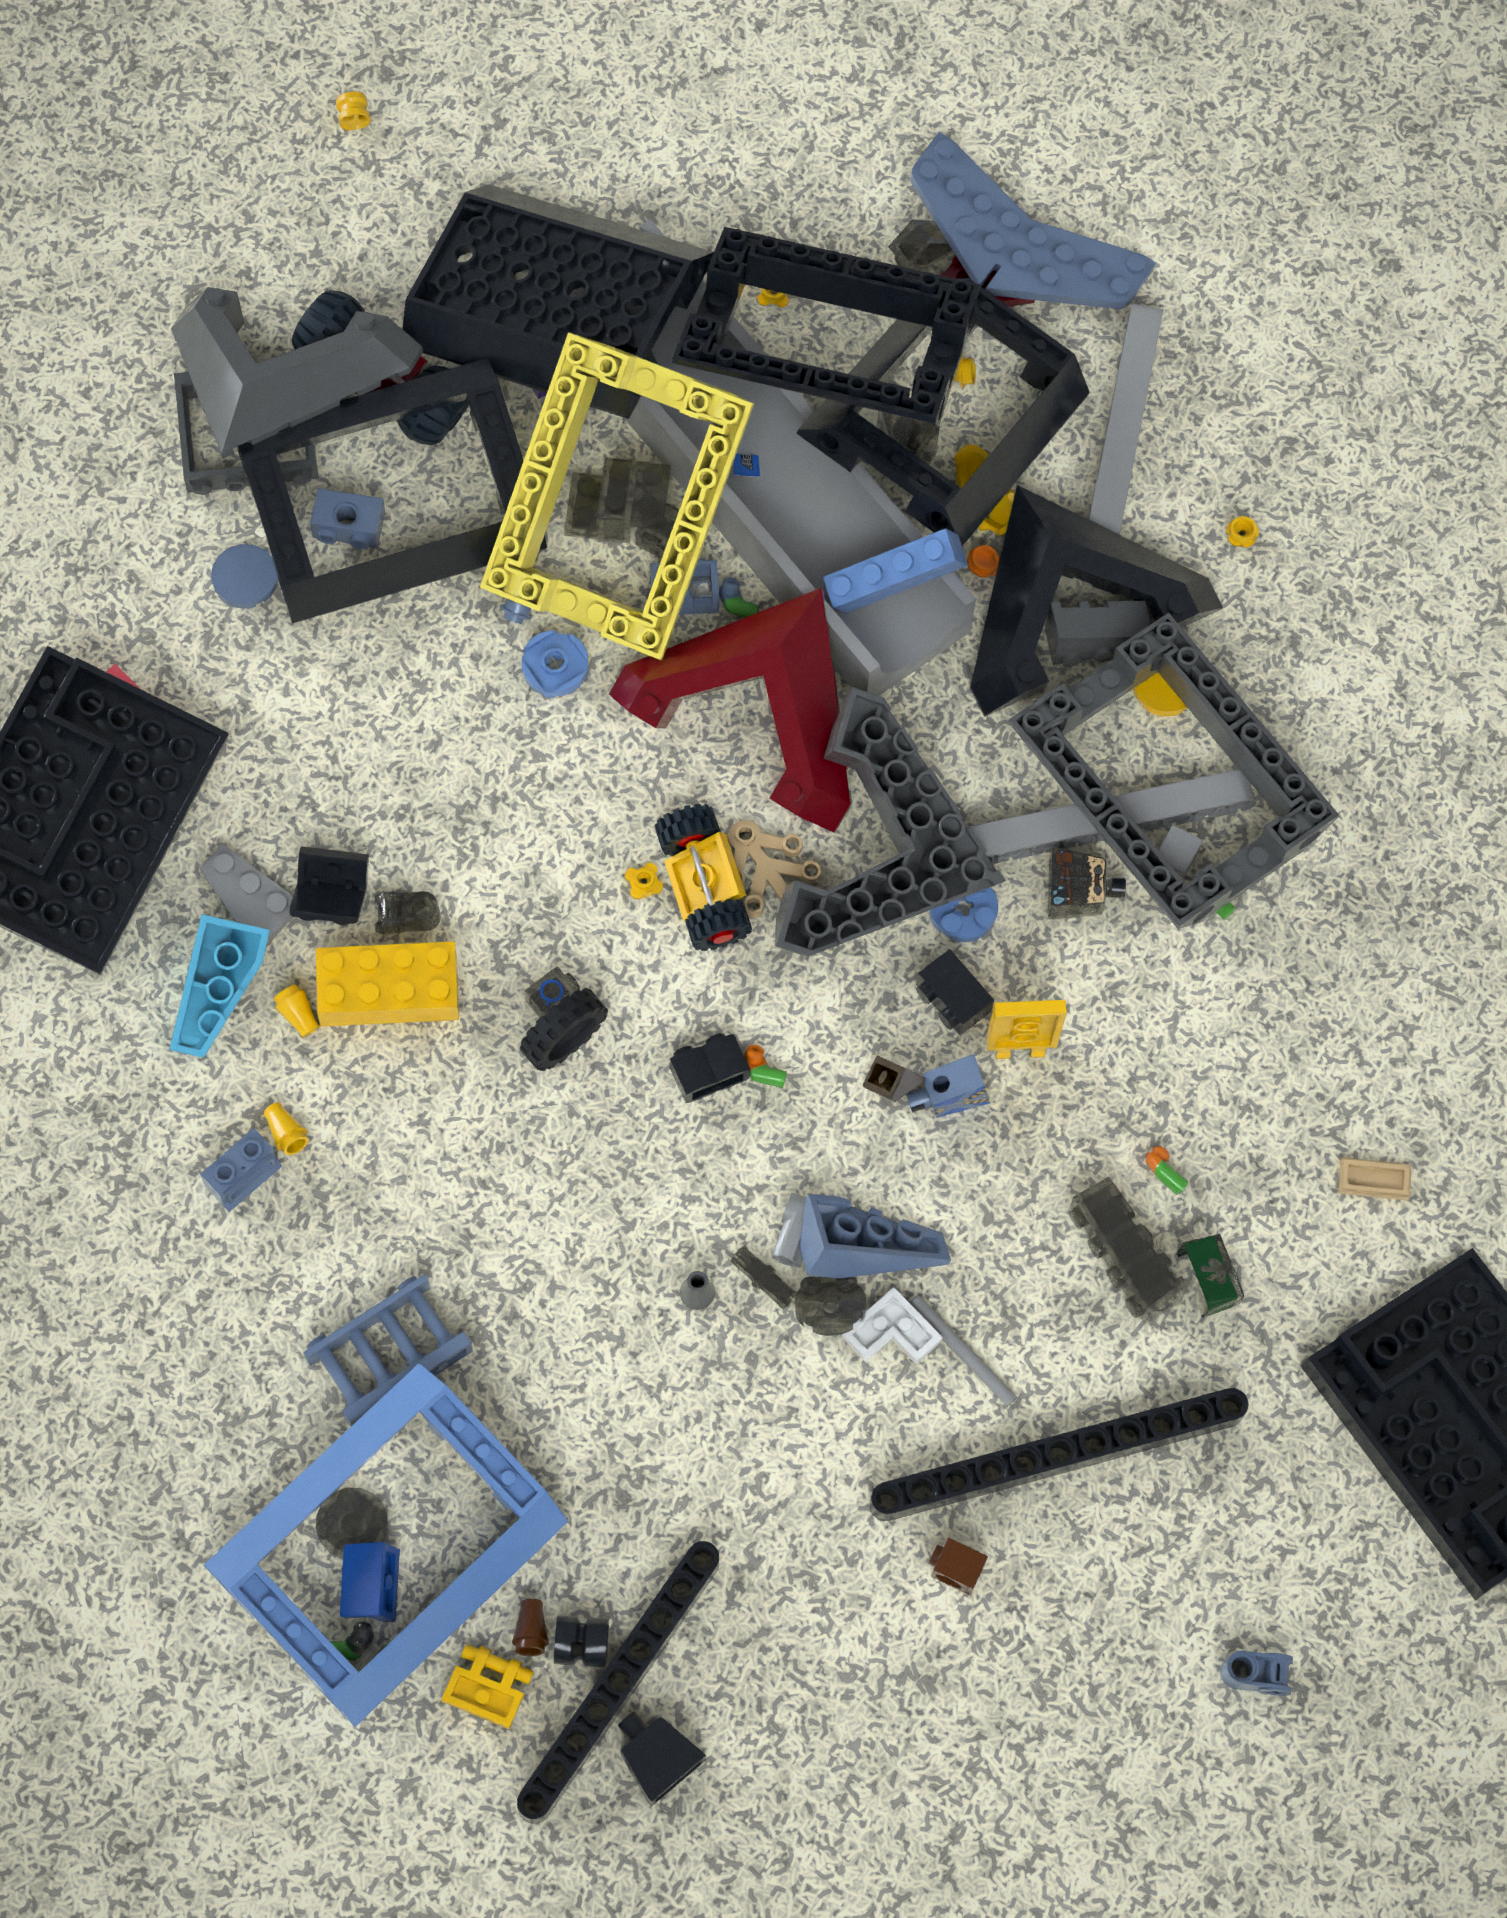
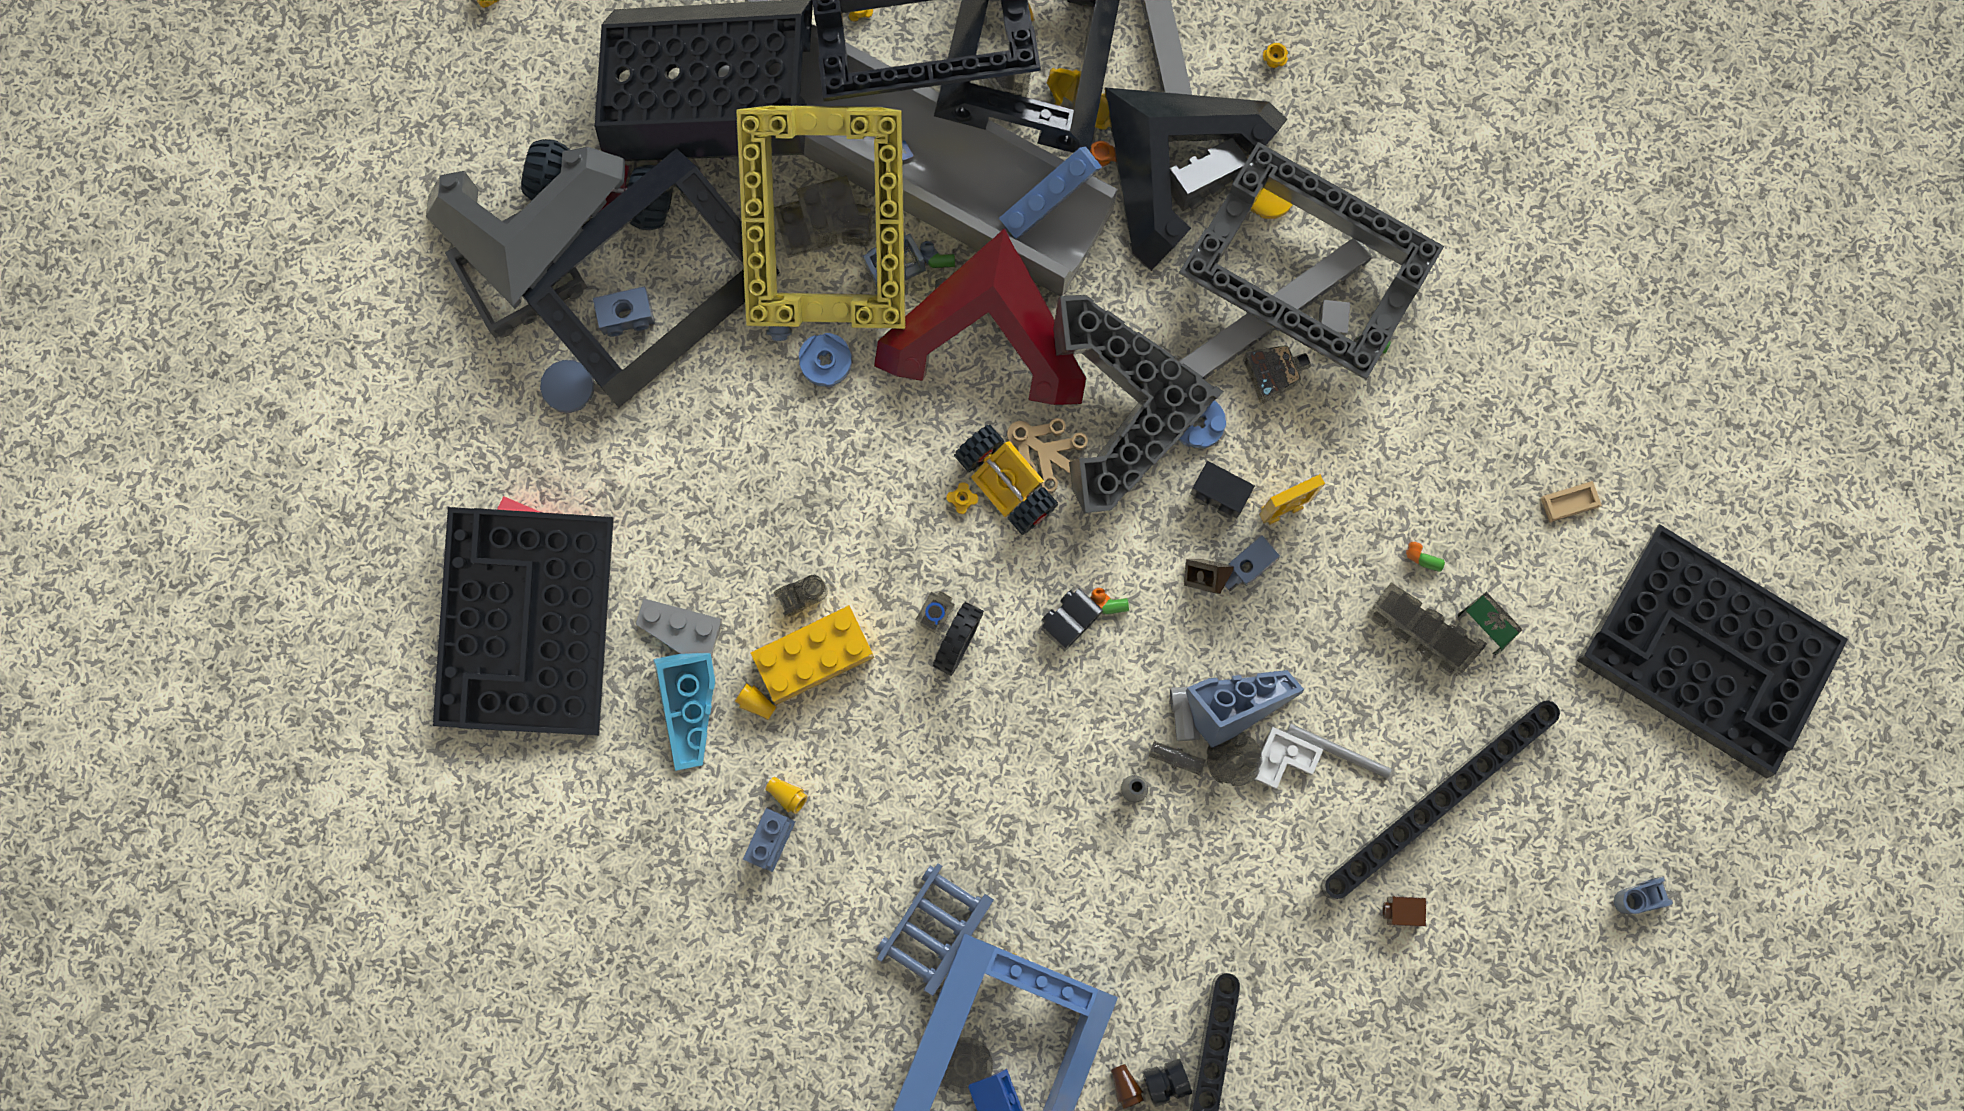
camera: 20 degrees left, 10 degrees up
(330, 885) = (738, 600): black bracket -> none

